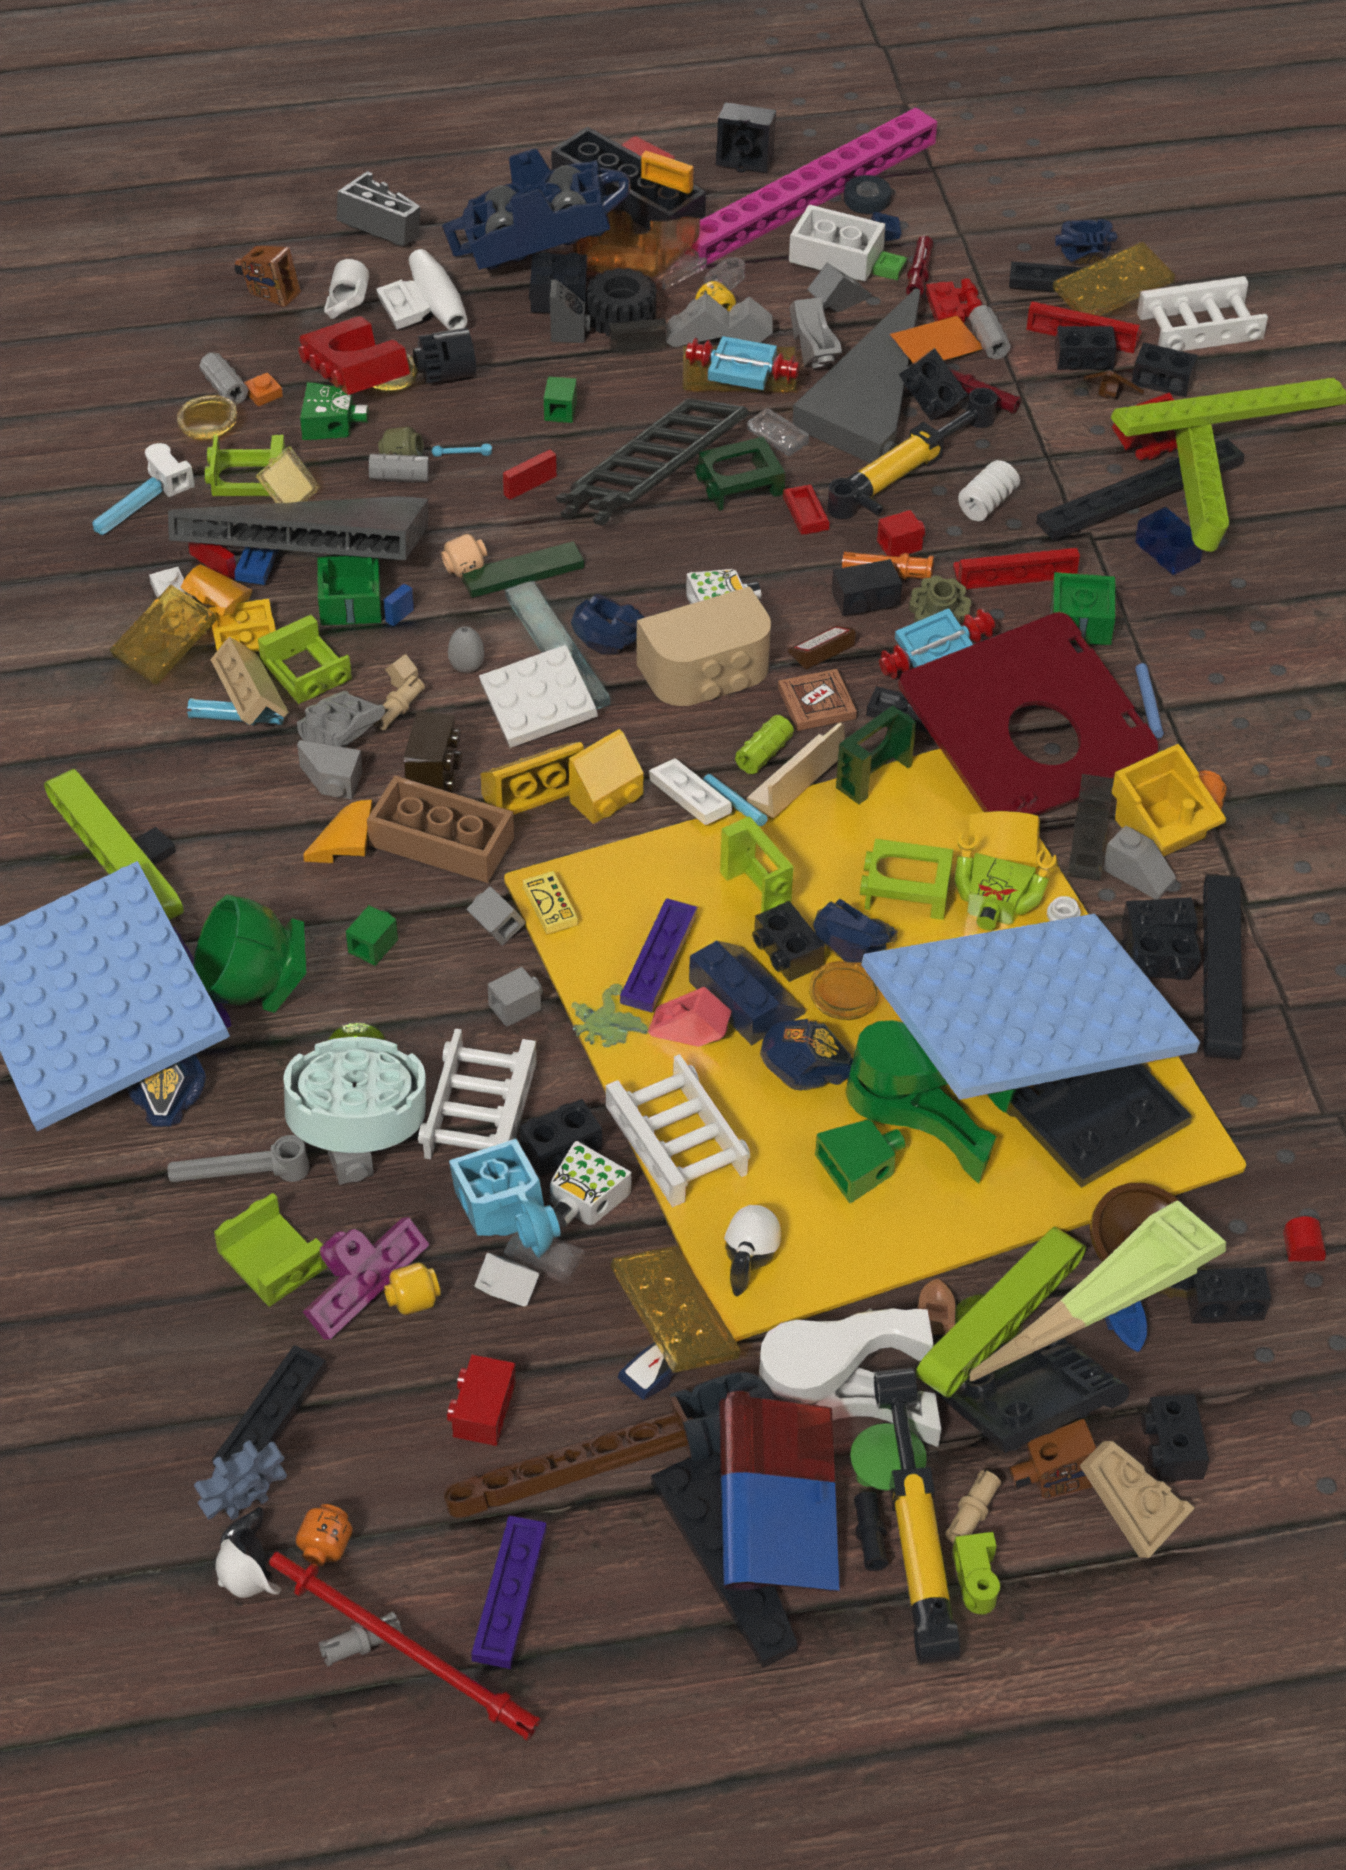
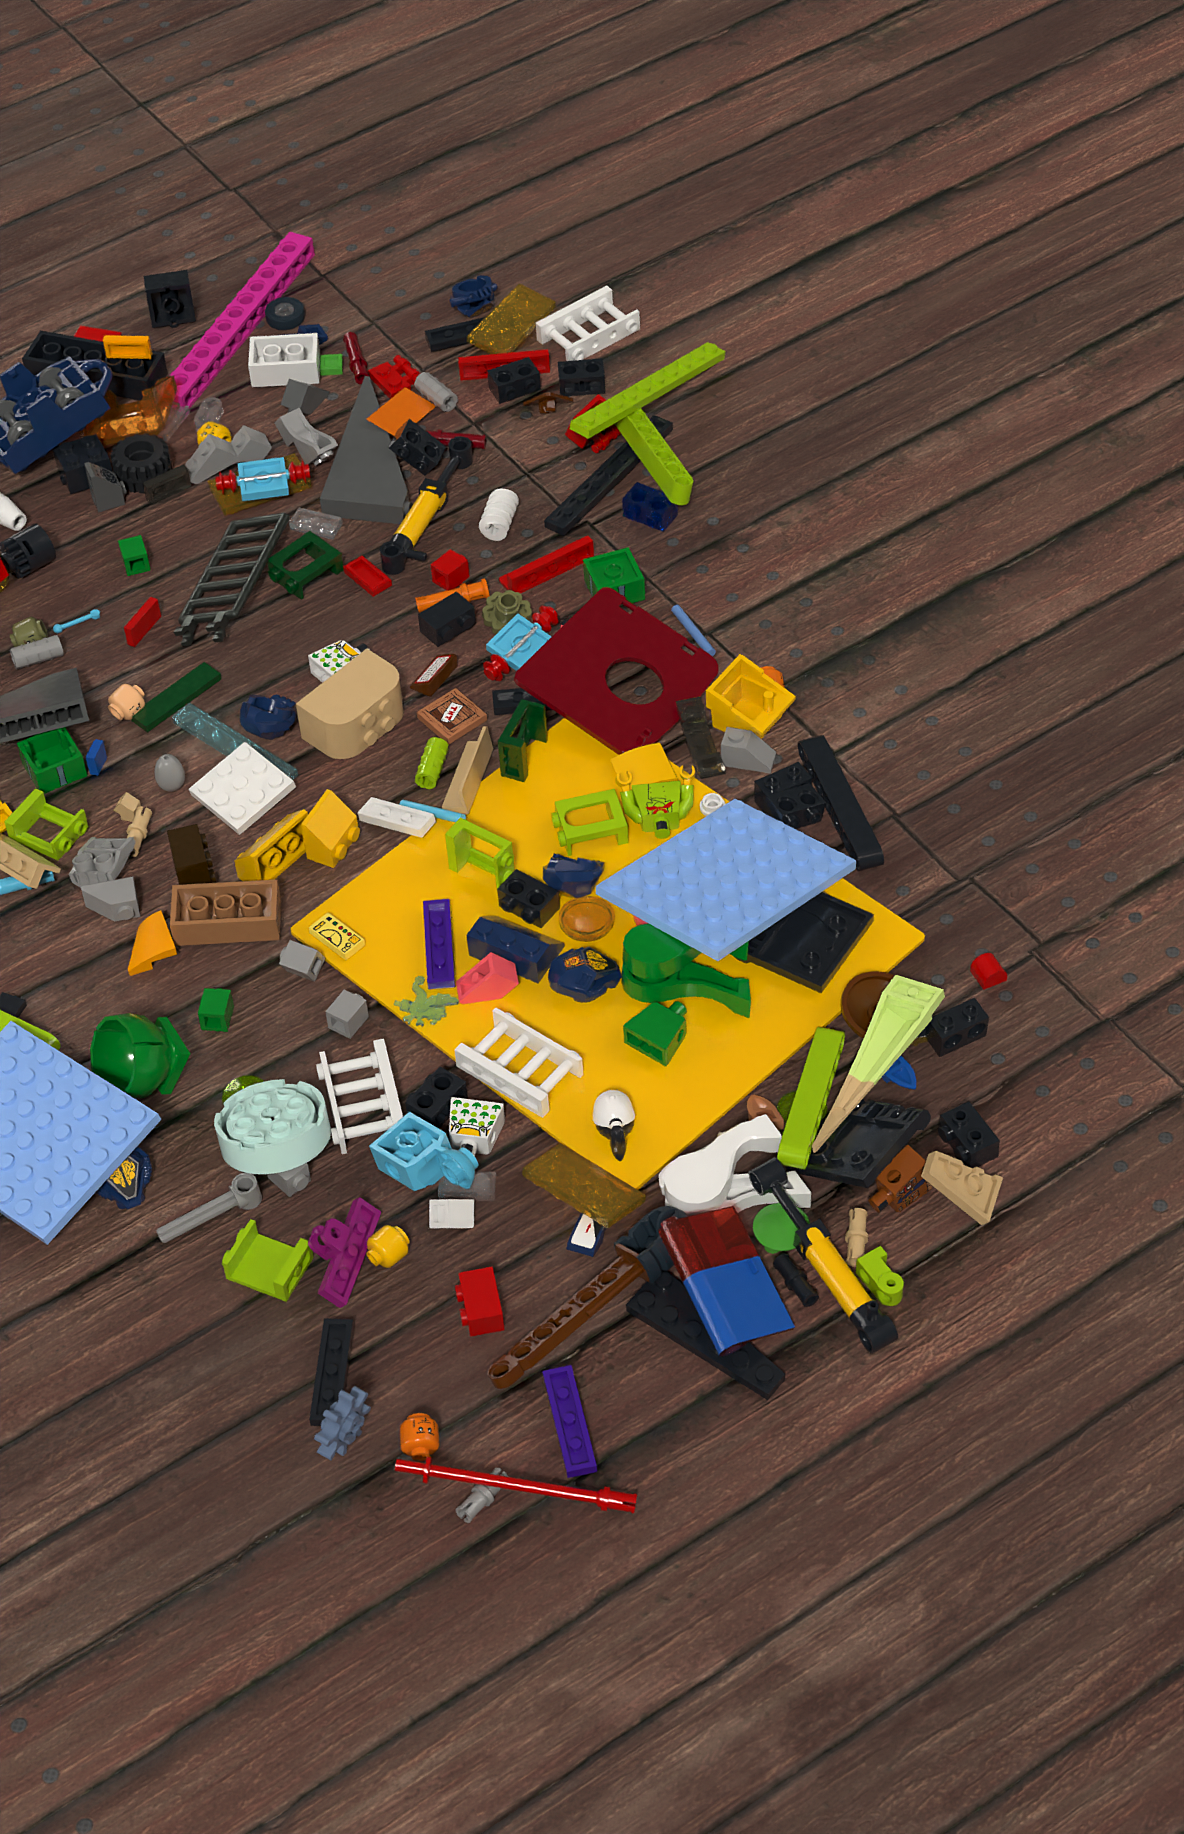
camera: 20 degrees left, 0 degrees up
(242, 1558) = (368, 1478): hair -> none

